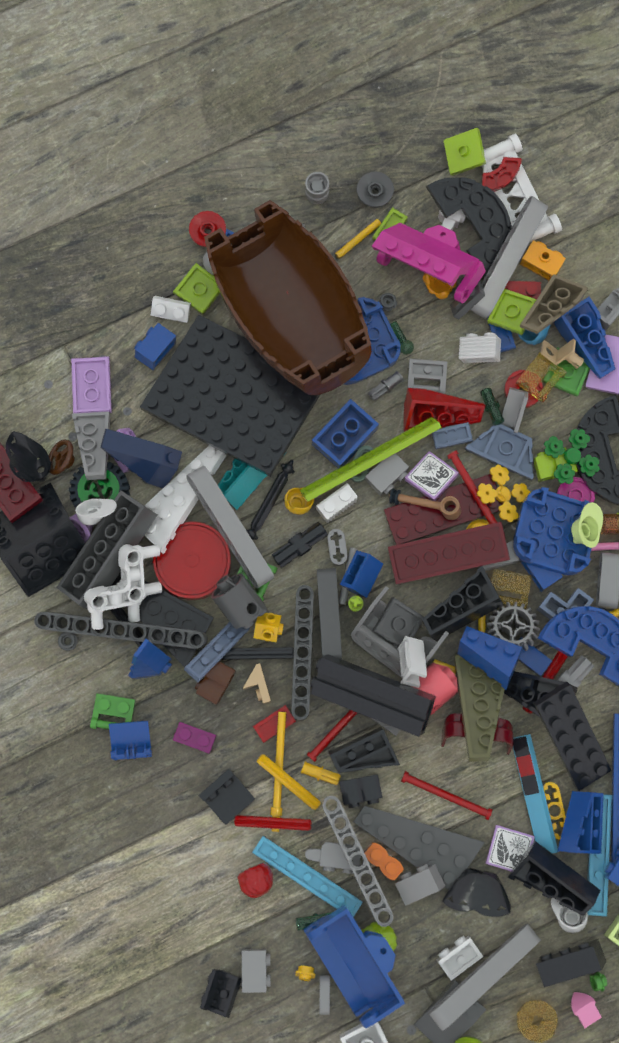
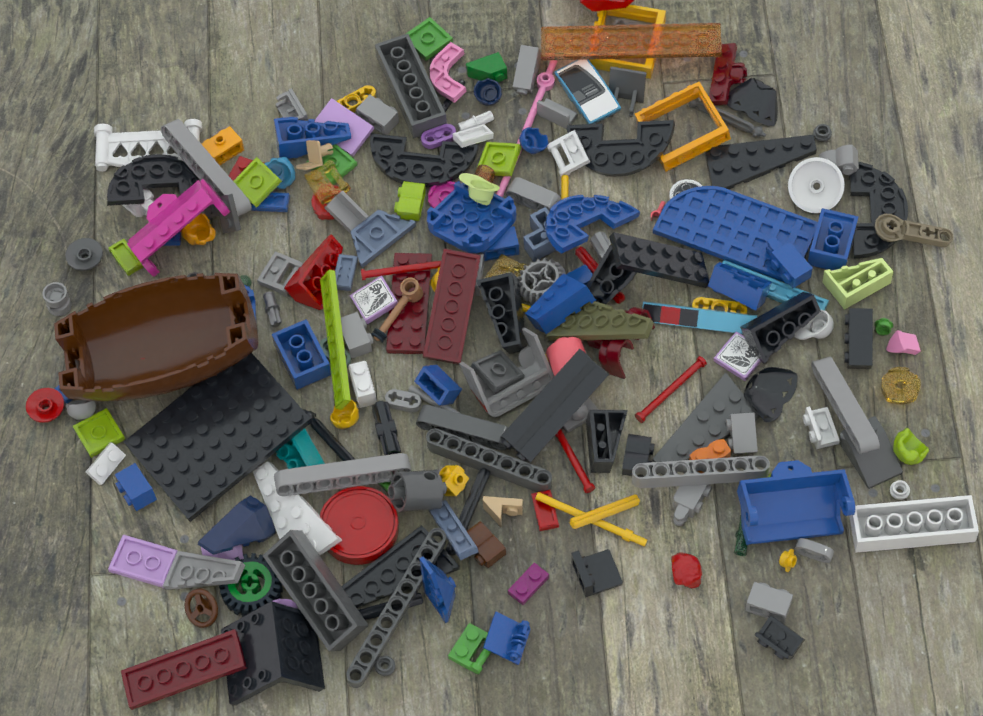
camera: 65 degrees left, 20 degrees down
(25, 458) = (181, 633): black piece -> none
(93, 510) = (271, 585): white cap -> none
(119, 595) = (361, 578): white pin -> none
(273, 822) = (637, 538): red axle -> none
(306, 876) = (695, 532): medium azure tile -> none
(320, 773) = (607, 485): yellow axle -> none
(355, 603) = (463, 398): lime axle -> none
(358, 238) = (118, 275): yellow piece -> none
(412, 661) = (536, 364): white window -> none
(464, 151) = (89, 171): lime plate -> none
(480, 348) = (276, 220): white brick -> none
(492, 406) = (334, 229): clear green pin -> none
(502, 493) = (417, 249): yellow plant -> none
(503, 174) = (127, 147): red tile -> none
(553, 302) = (266, 144): dark tan wedge -> none
(572, 456) = (410, 180): green plant -> none

